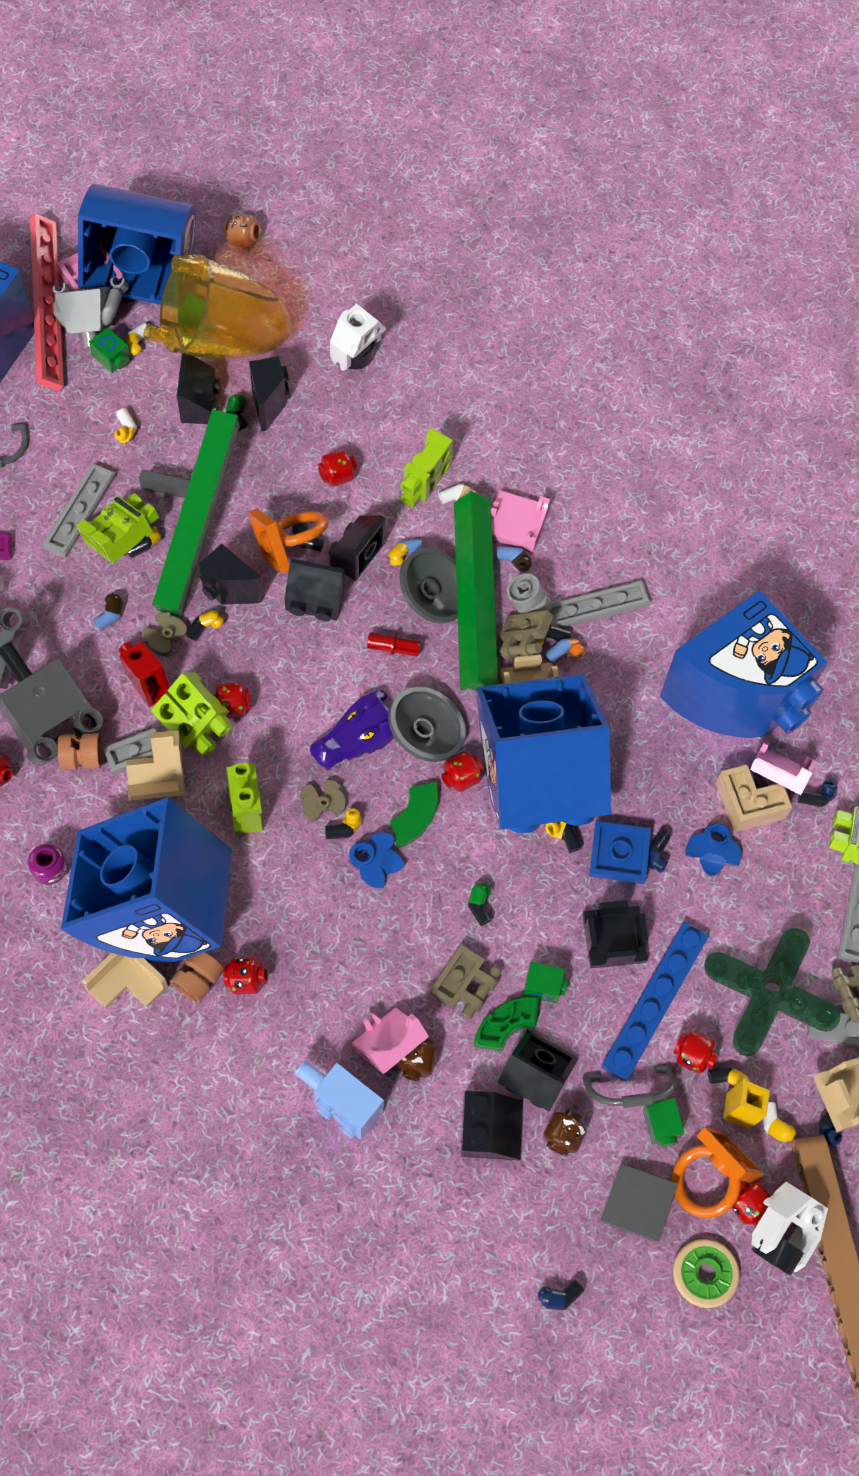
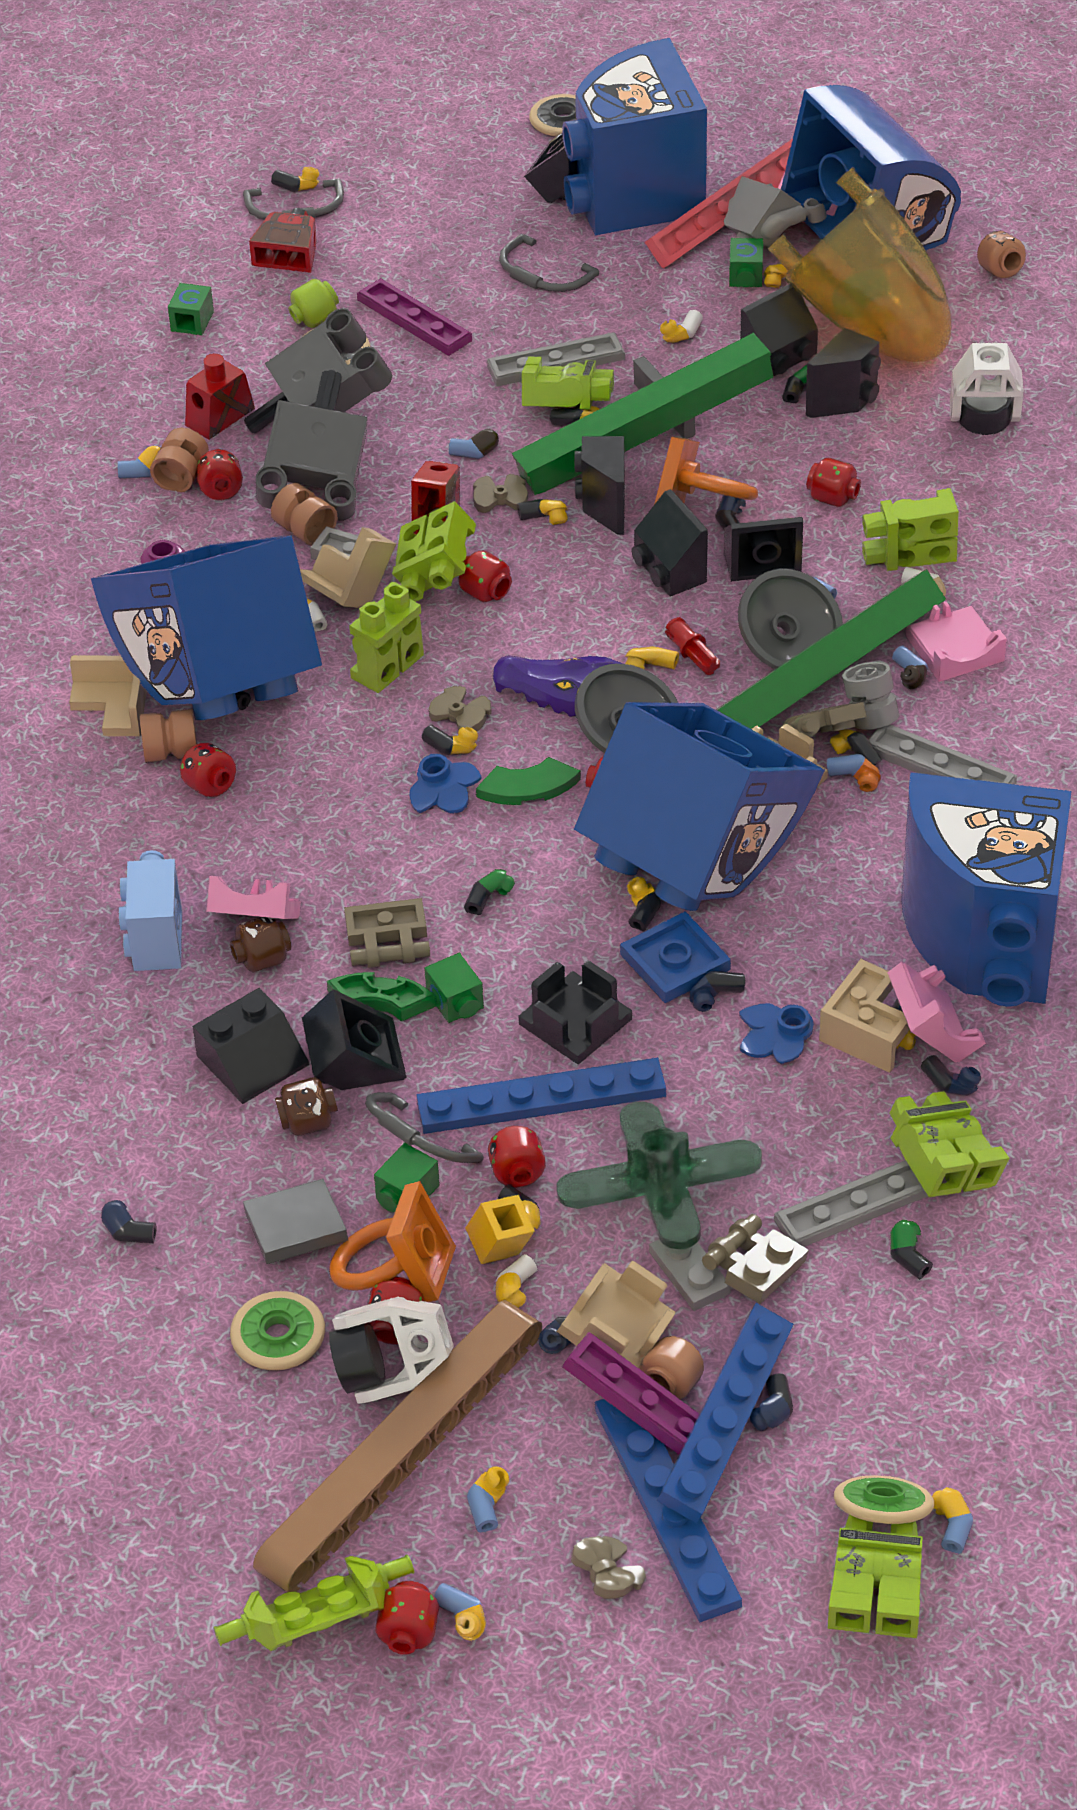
camera: 55 degrees right, 20 degrees down
(377, 672) = (653, 656): none -> yellow arm

